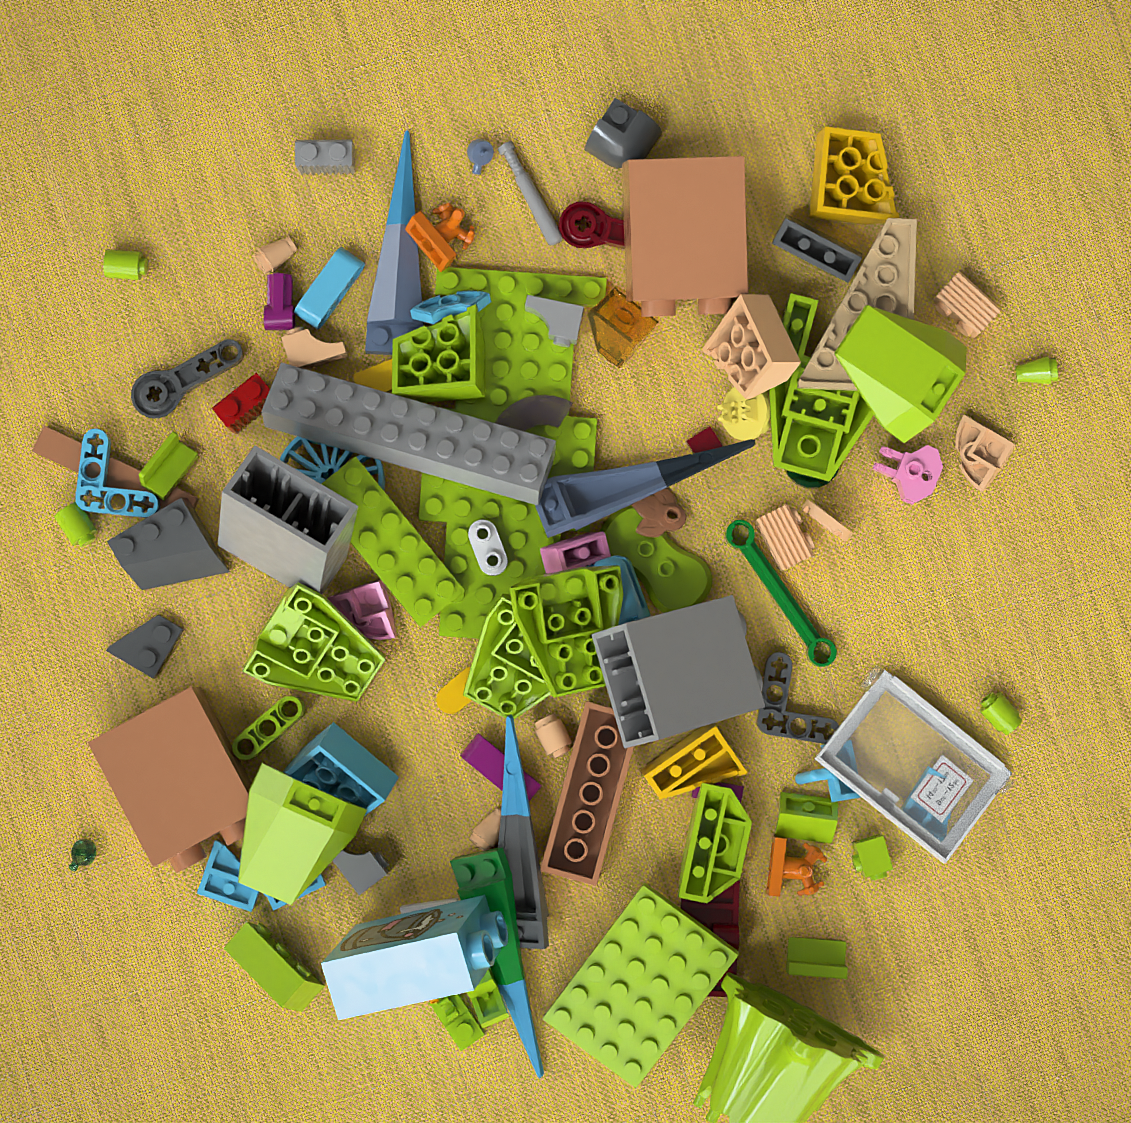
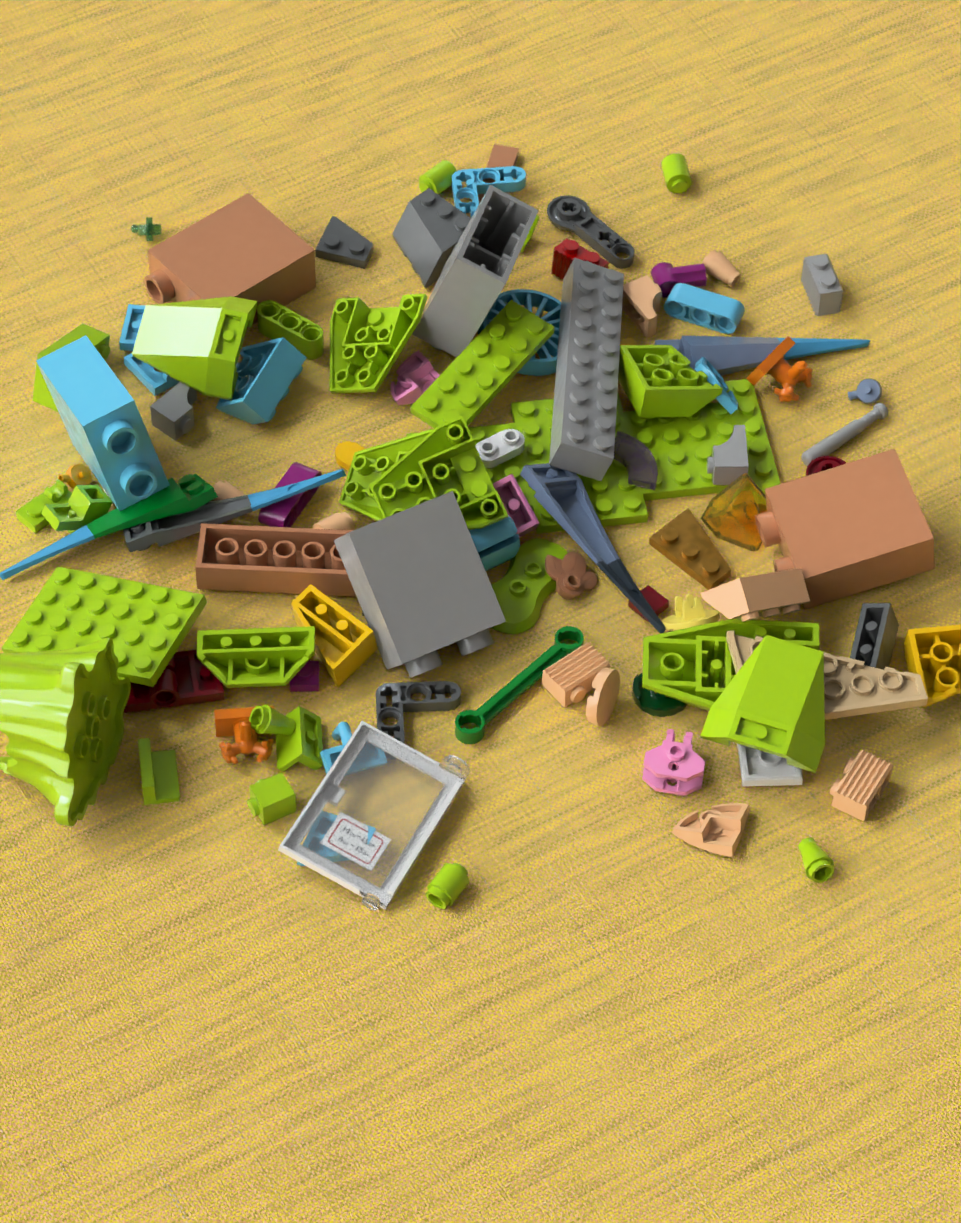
camera: 75 degrees right, 35 degrees down
(622, 135) = (931, 487): dark grey brick -> none
(646, 386) = (691, 550): none -> pearl gold wing
(798, 846) = (269, 721): none -> lime cone

